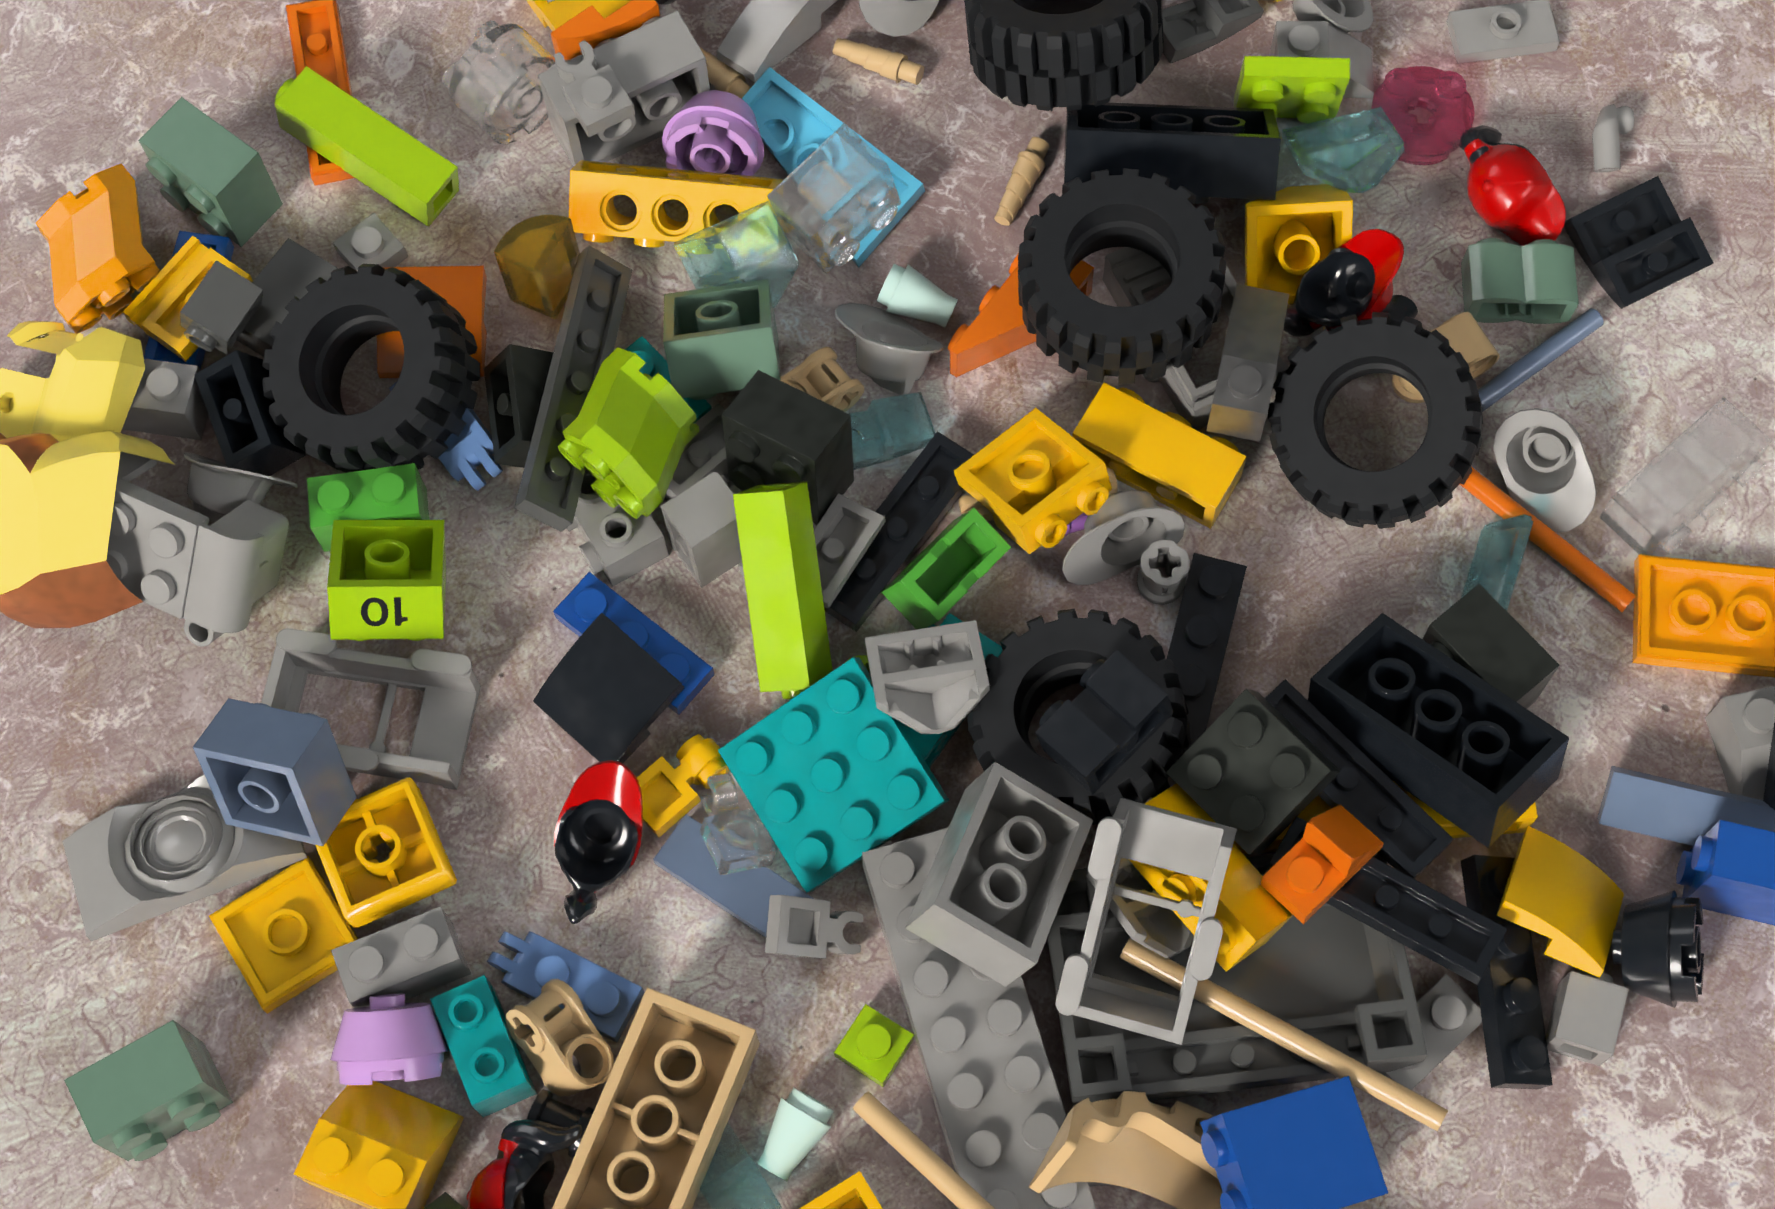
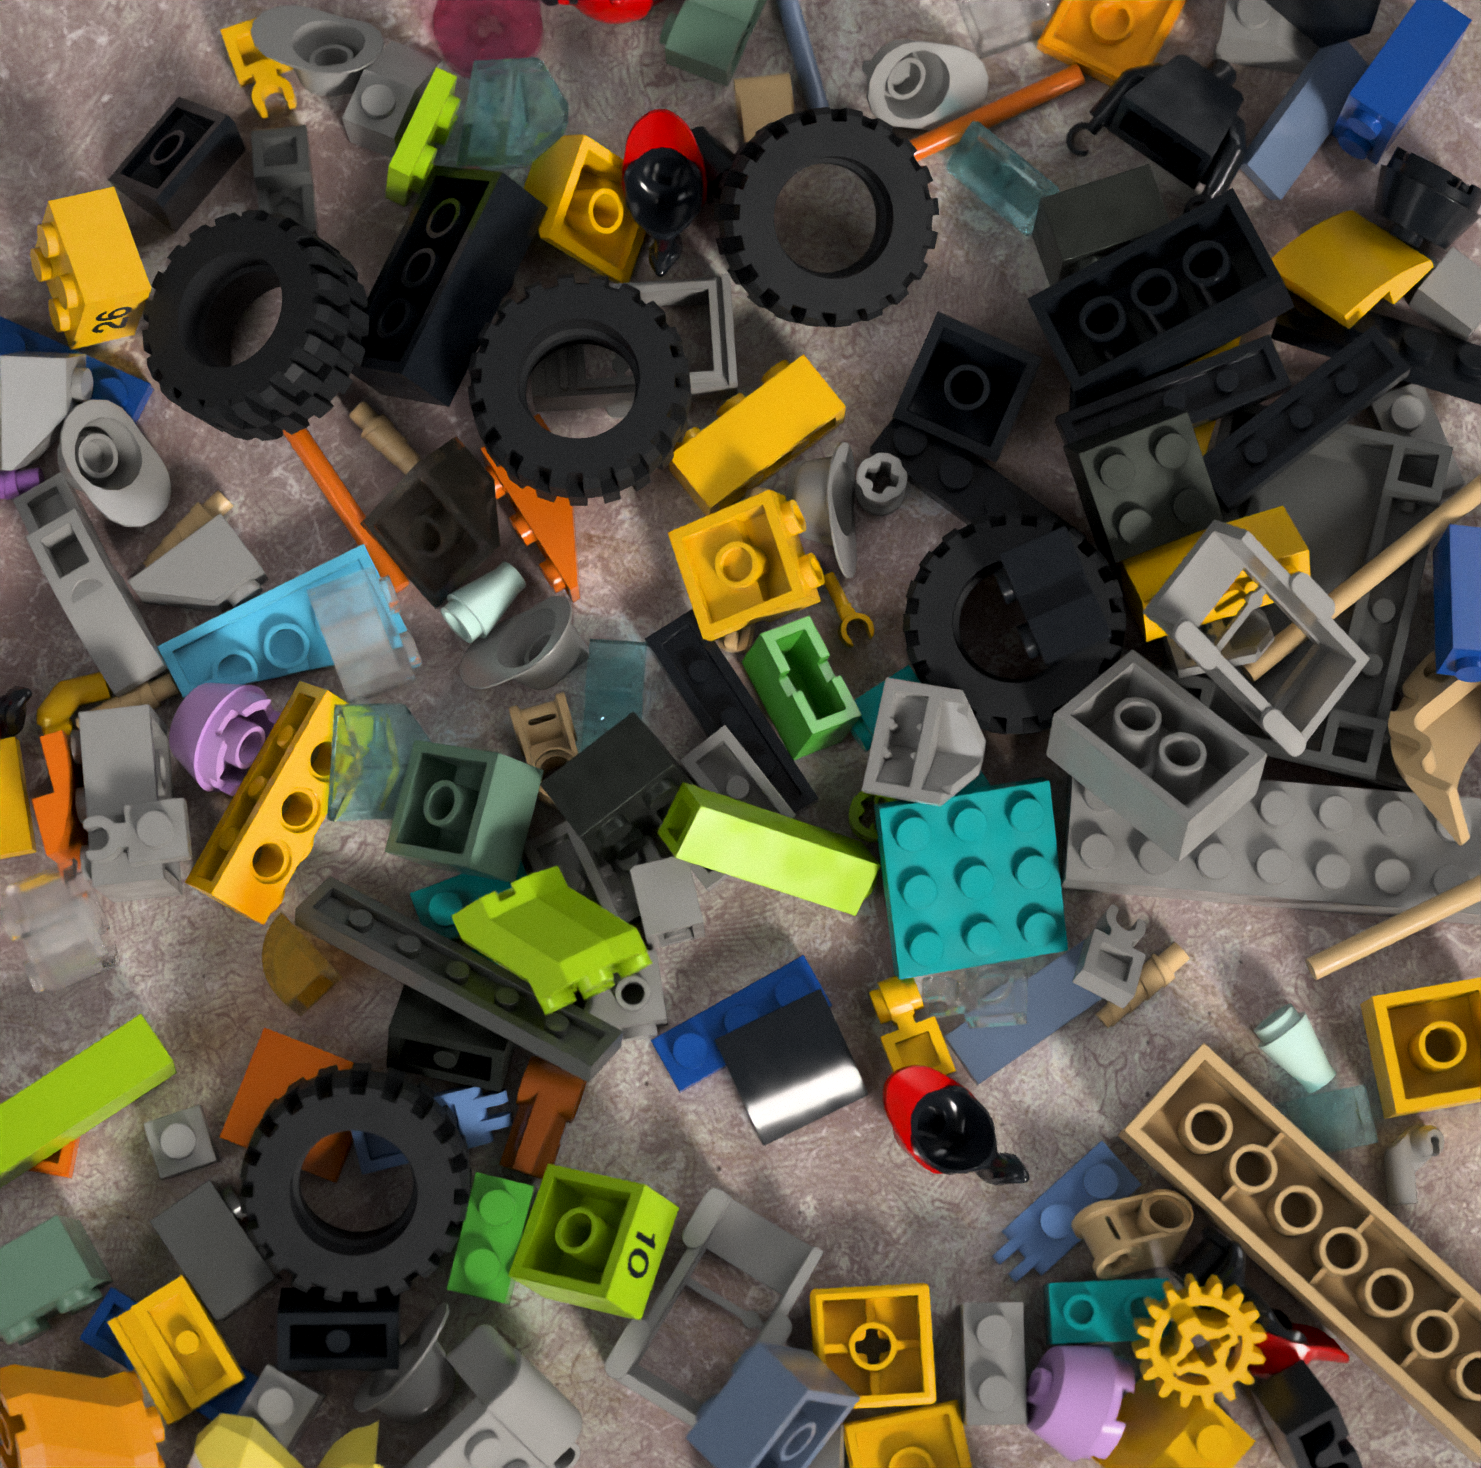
camera: 70 degrees left, 10 degrees up
(220, 309) = (222, 1316): dark grey brick -> none
(485, 511) = (546, 1103): none -> dark orange piece
(494, 1118) = (1221, 1327): none -> yellow gear
(704, 27) = (65, 698): none -> yellow arm
(804, 975) = (1155, 974): none -> tan animal
(851, 79) = (203, 572): none -> light grey slope
(874, 1045) = (1237, 943): lime plate -> none
(953, 167) = (343, 504): none -> orange bar
(969, 226) = (439, 521): none -> clear smoke slope
(1035, 592) = (845, 610): none -> yellow hand
(1248, 363) = (715, 307): flat silver slope -> none
(1282, 607) = (968, 387): none -> black slope
(1321, 862) = (1251, 460): orange slope -> none
(1626, 698) = (1178, 119): none -> black torso

